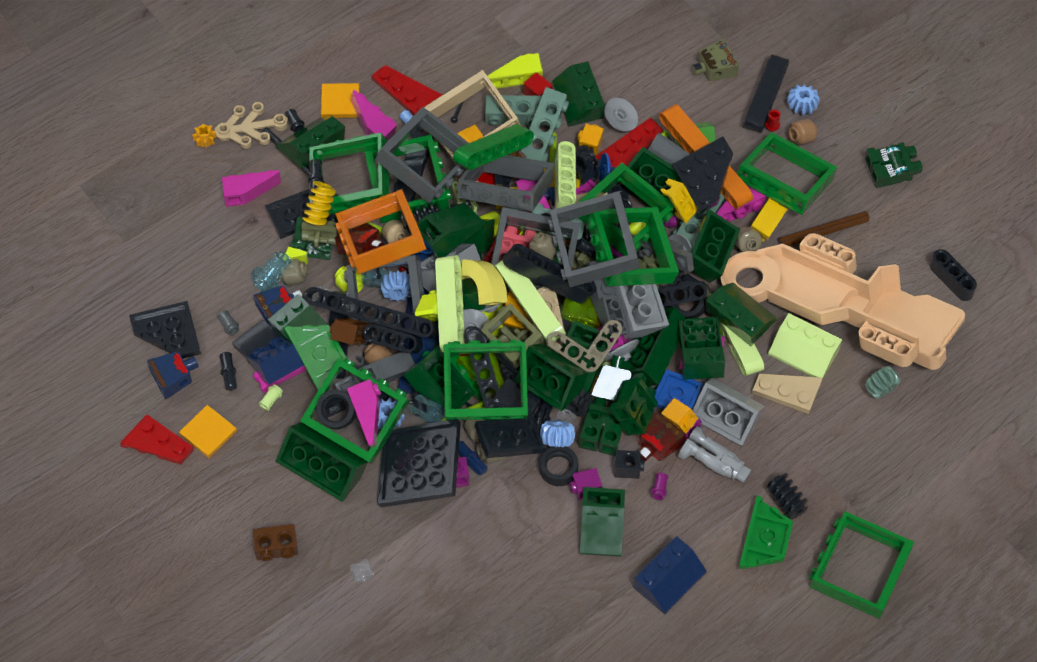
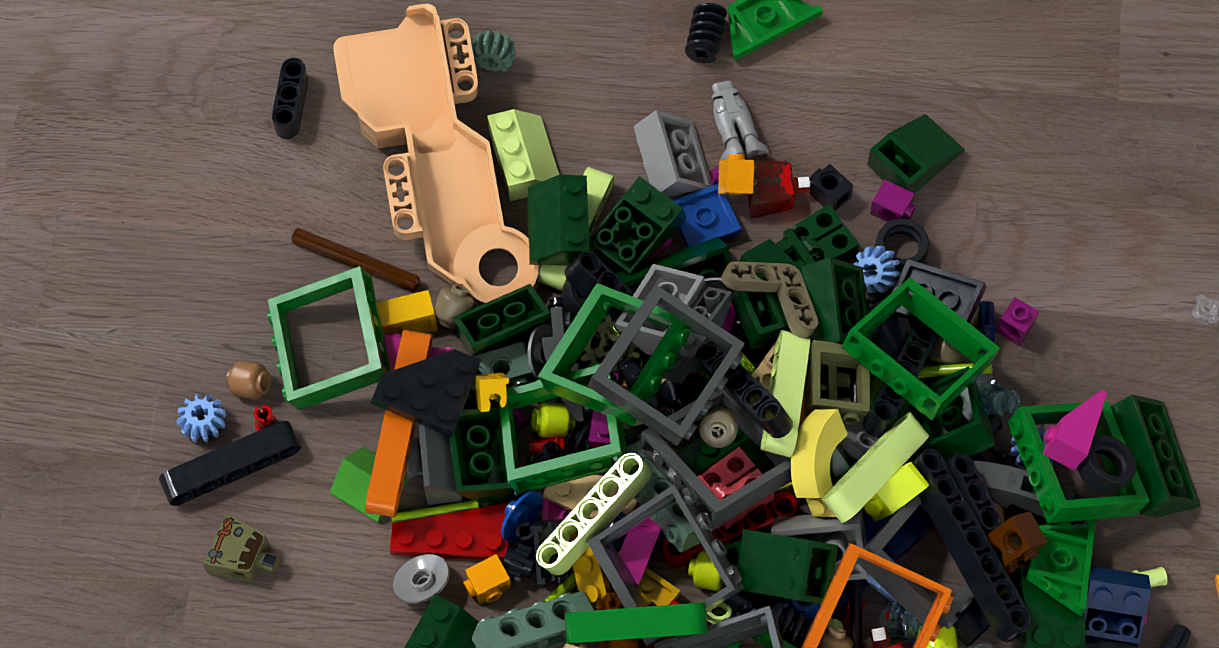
camera: 135 degrees left, 5 degrees up
(420, 463) = (1056, 348): black plate -> none
(635, 405) = (769, 221): dark green hips -> none
(659, 490) = (823, 142): magenta pin -> none
(669, 575) = (899, 60): dark blue slope -> none
(791, 391) = (586, 131): tan wing -> none
(892, 164) = (202, 262): dark green hips -> none

